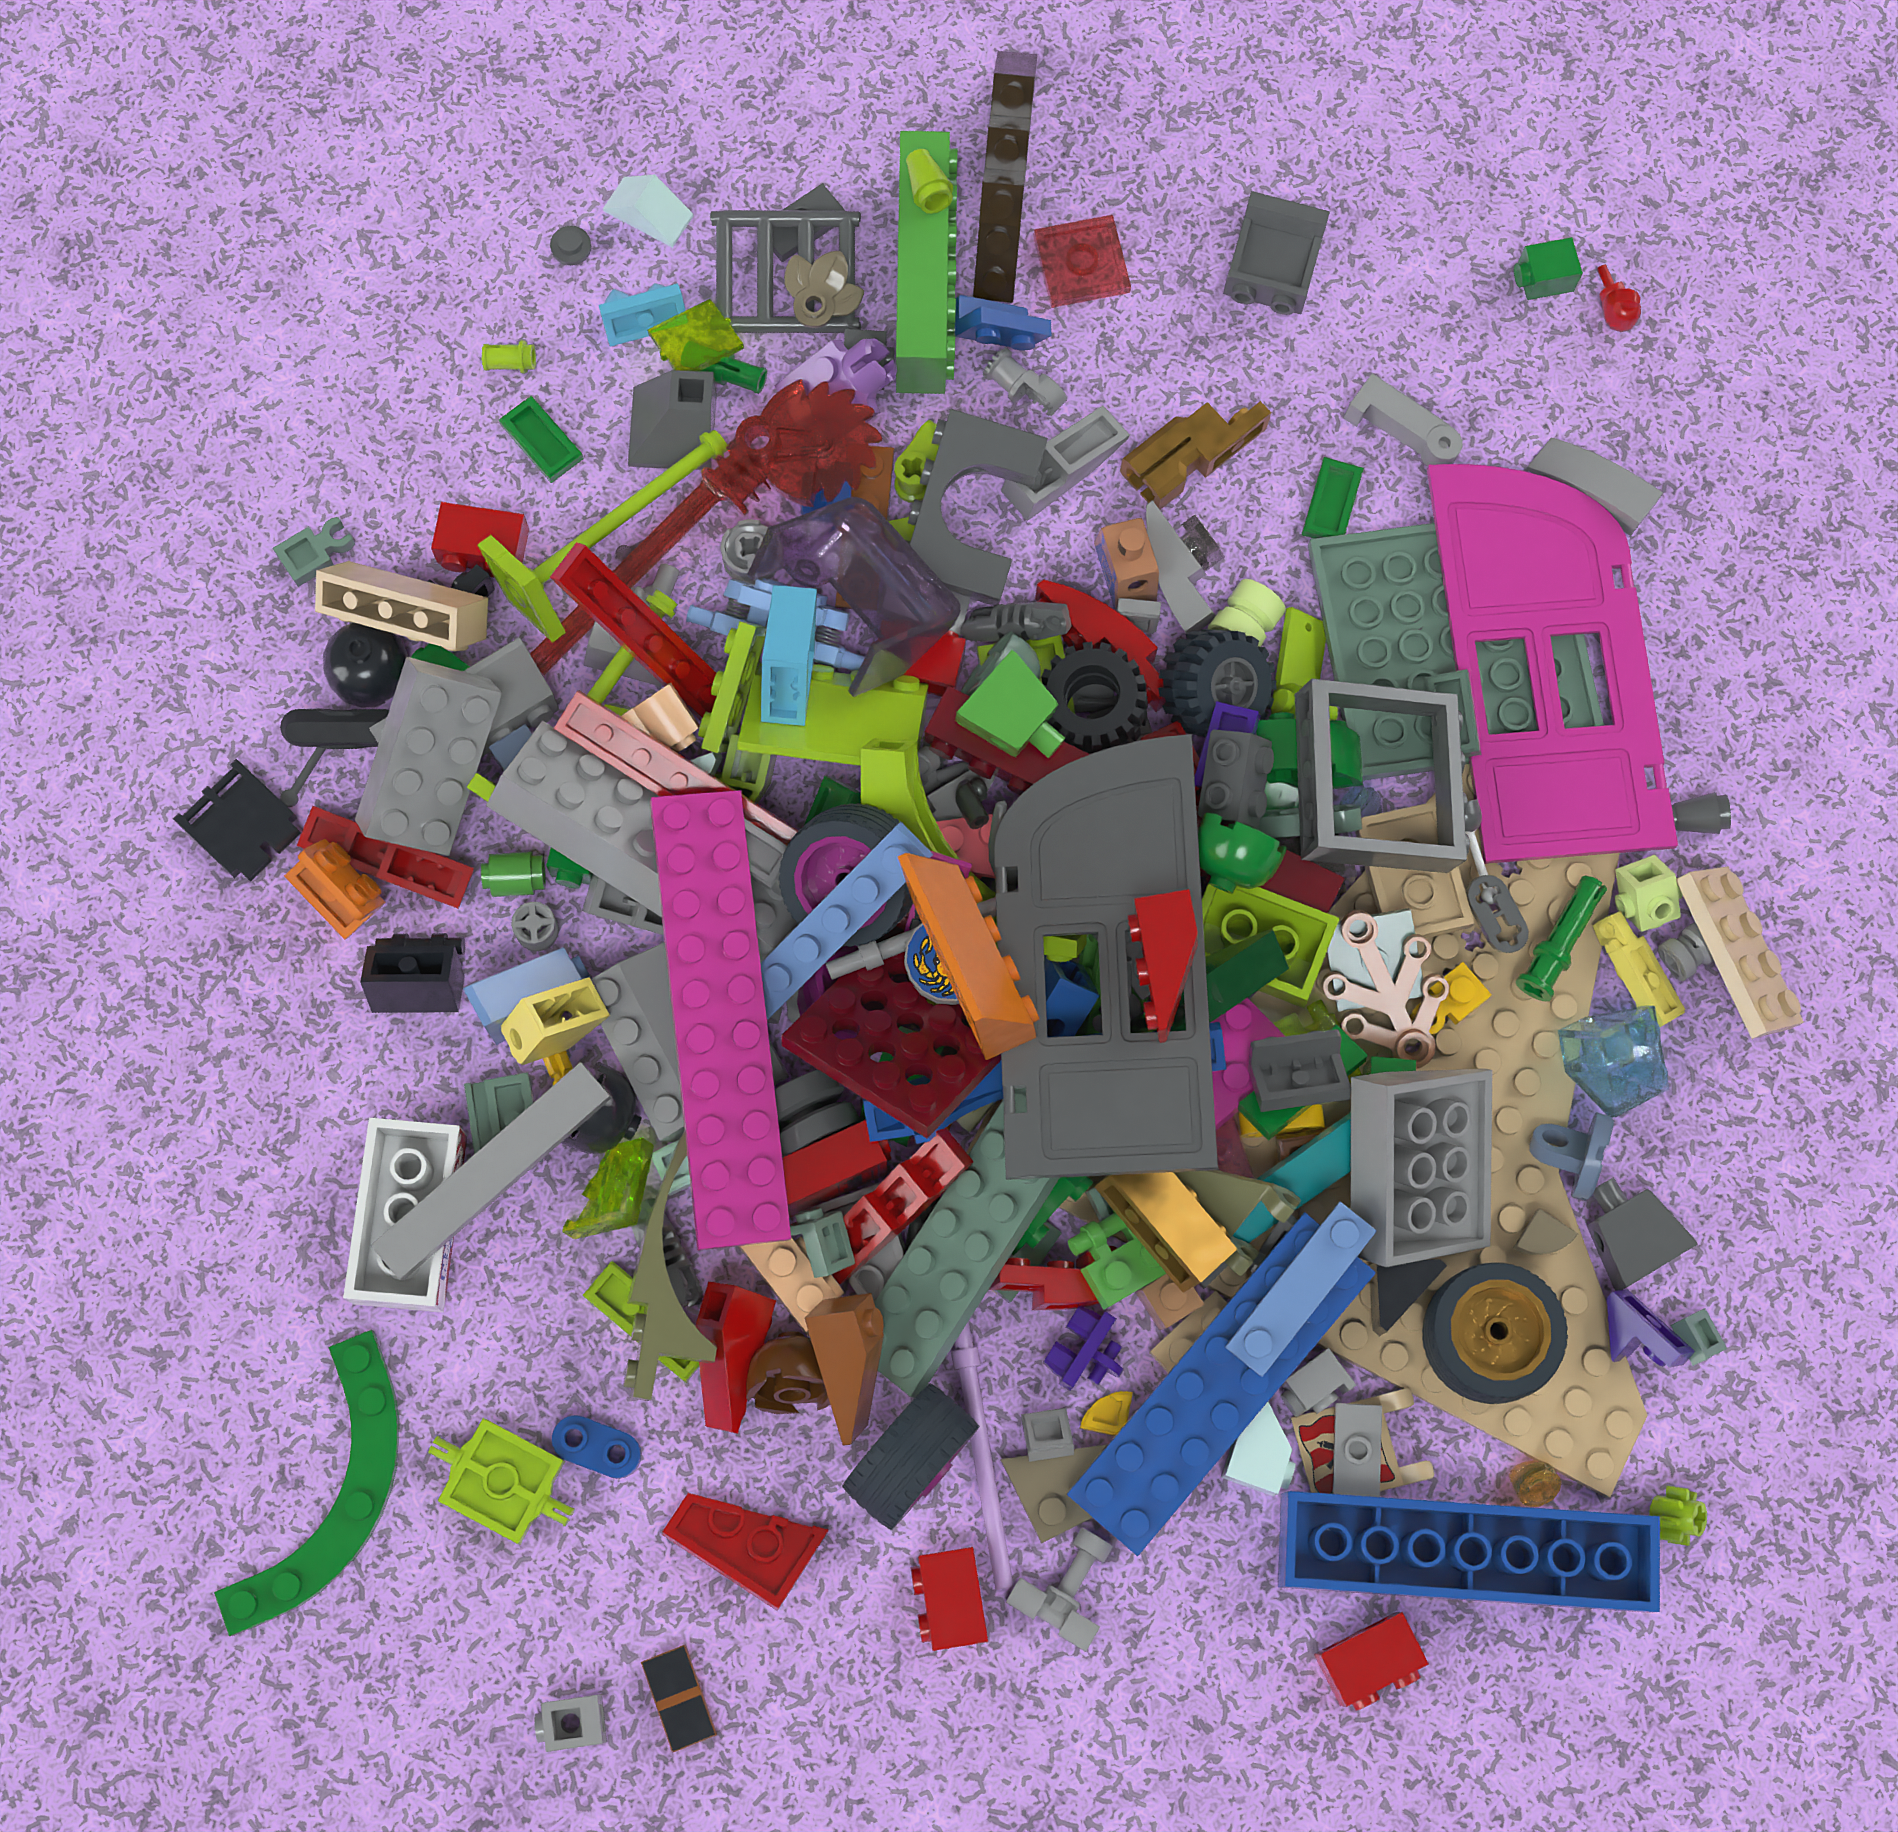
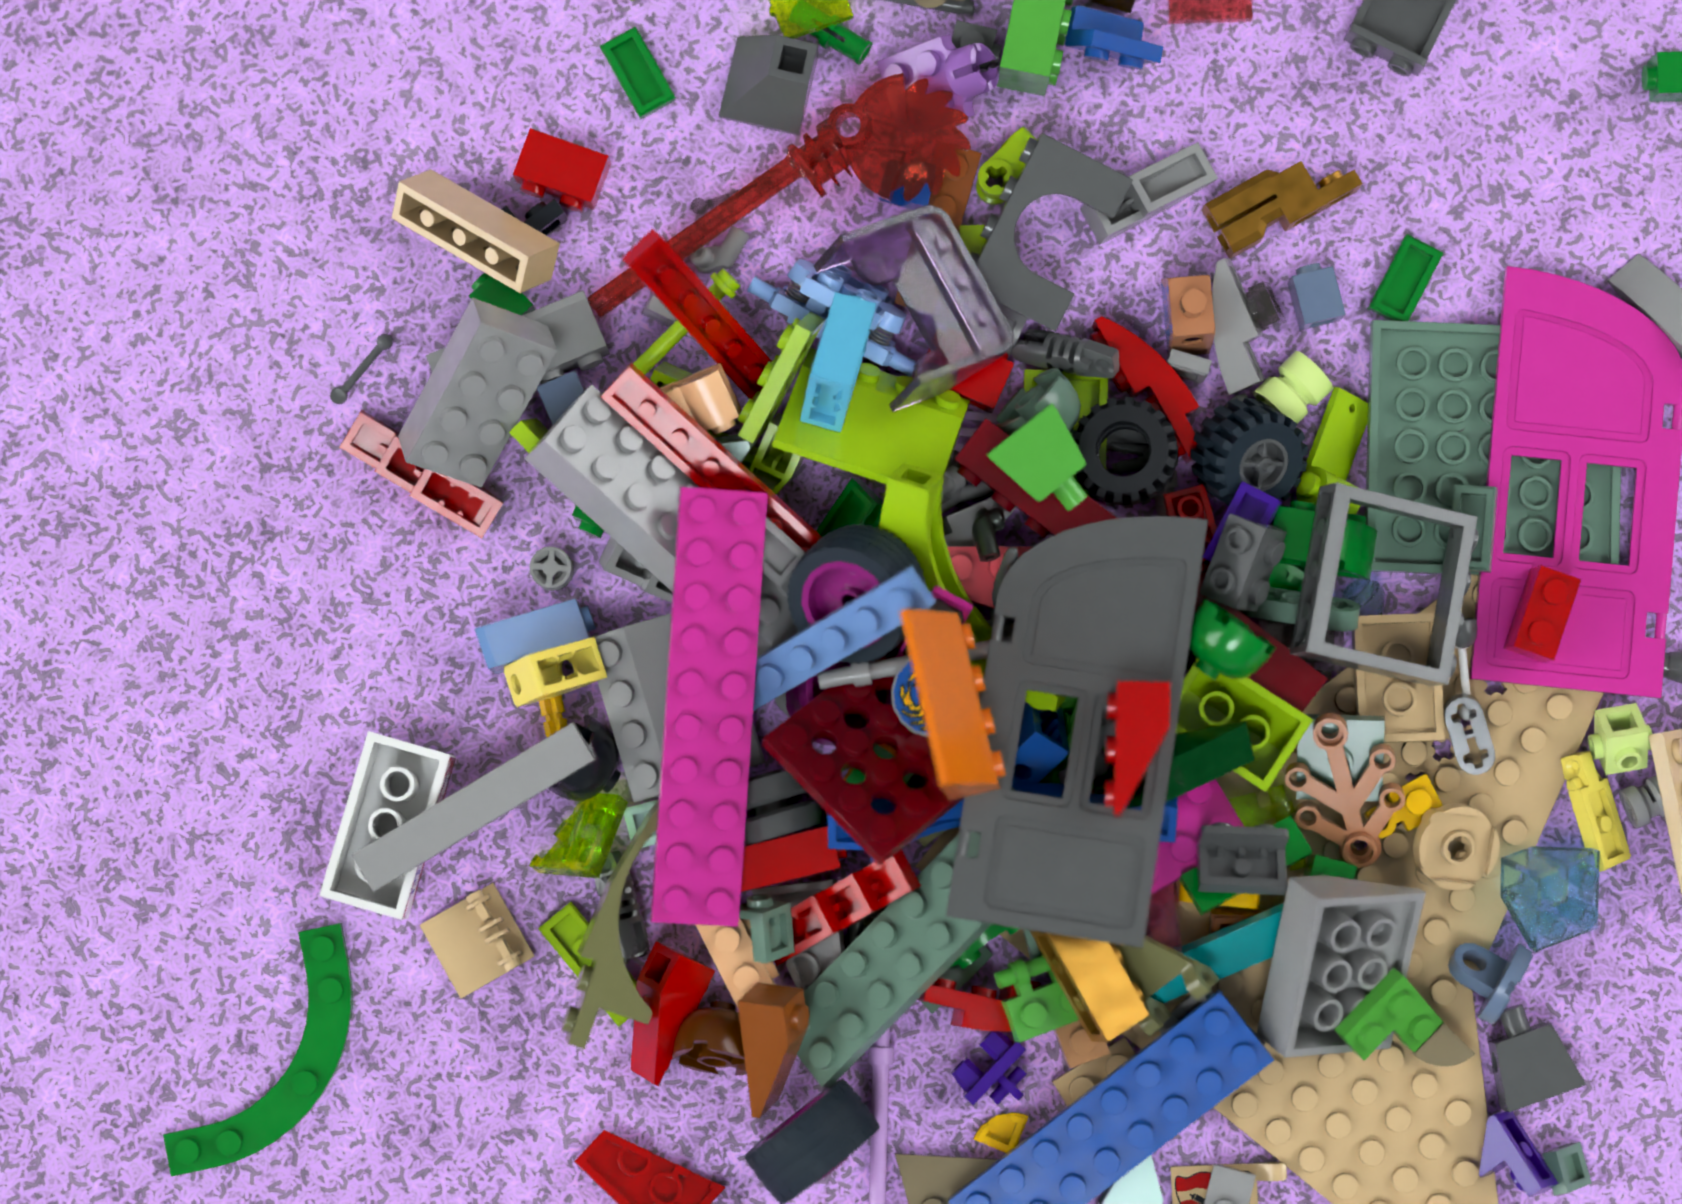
camera: 15 degrees right, 10 degrees up
(240, 823) = (289, 414): black plate -> none
(309, 552) = (392, 154): sand green plate -> none
(331, 727) = (393, 338): black piece -> none
(335, 887) = (370, 498): orange bracket -> none
(364, 664) = (430, 278): black cylinder -> none
(414, 974) = (431, 594): black brick -> none
(495, 1105) = (488, 741): sand green plate -> none
(501, 1481) = (436, 1085): lime plate -> none
(513, 874) = (539, 513): bright green brick -> none
(520, 1320) = (477, 940): none -> tan hinge
(525, 586) = (600, 231): lime tile -> none
(595, 1447) = (527, 1070): blue plate -> none
(740, 548) = (819, 226): light grey wheel -> none
(1019, 381) = (1119, 99): light grey connector -> none
(1047, 1434) = (942, 1140): light grey tile -> none
(1249, 529) = (1315, 296): none -> sand blue brick
(1300, 1289) = (1200, 1063): medium blue plate -> none
(1315, 1384) = (1199, 1143): light grey brick -> none
(1397, 1288) = (1293, 1076): black slope -> none
(1405, 421) = (1496, 213): light grey leg -> none
(1460, 1338) = (1341, 1125): wheel -> none
(1479, 1202) = (1387, 1009): none -> bright green plate
(1485, 1026) = (1438, 830): none -> tan plate
(1542, 780) = (1542, 613): none -> red brick
(1554, 953) = (1514, 783): green pin -> none

